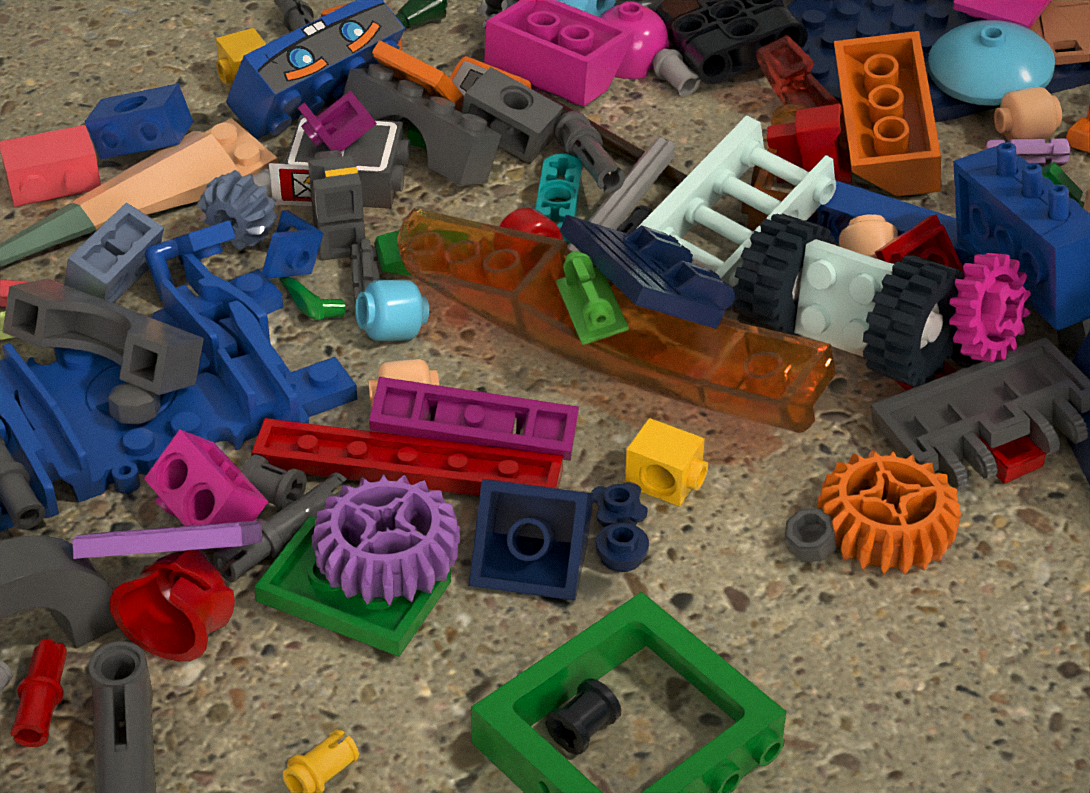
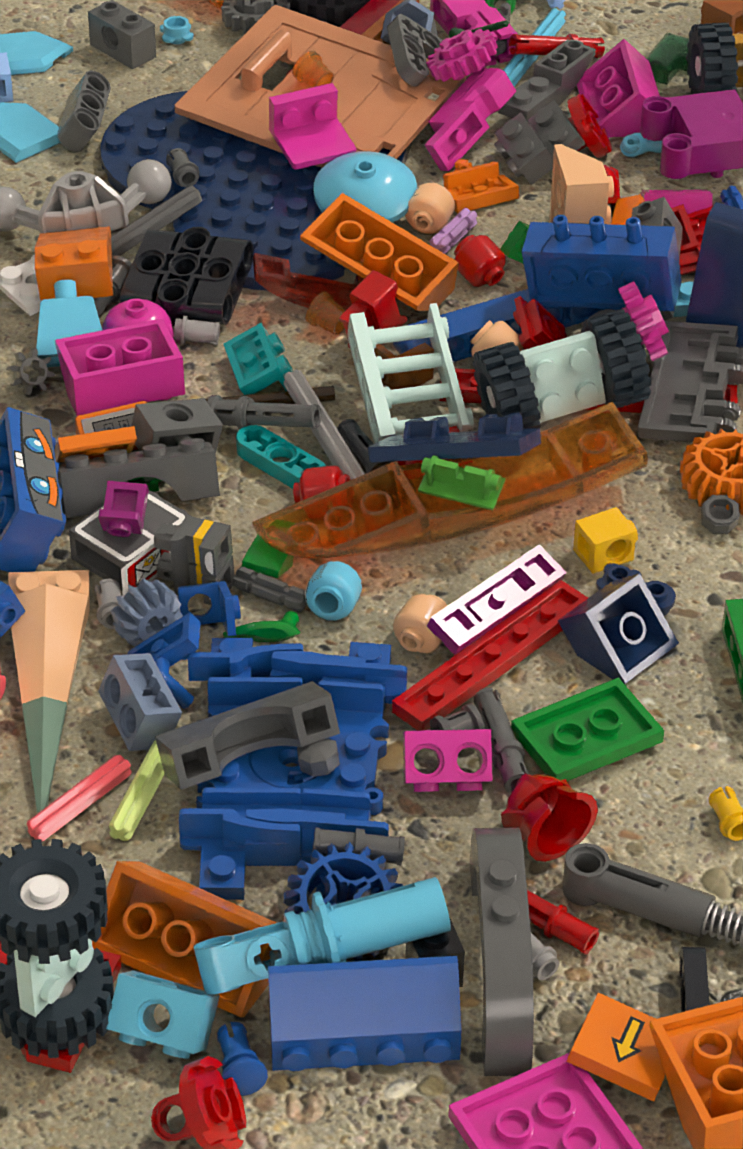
camera: 55 degrees left, 0 degrees up
(167, 539) = (512, 780): medium lavender tile -> none
(389, 551) = (585, 686): medium lavender gear -> none
(682, 117) = (257, 359): none -> teal bracket

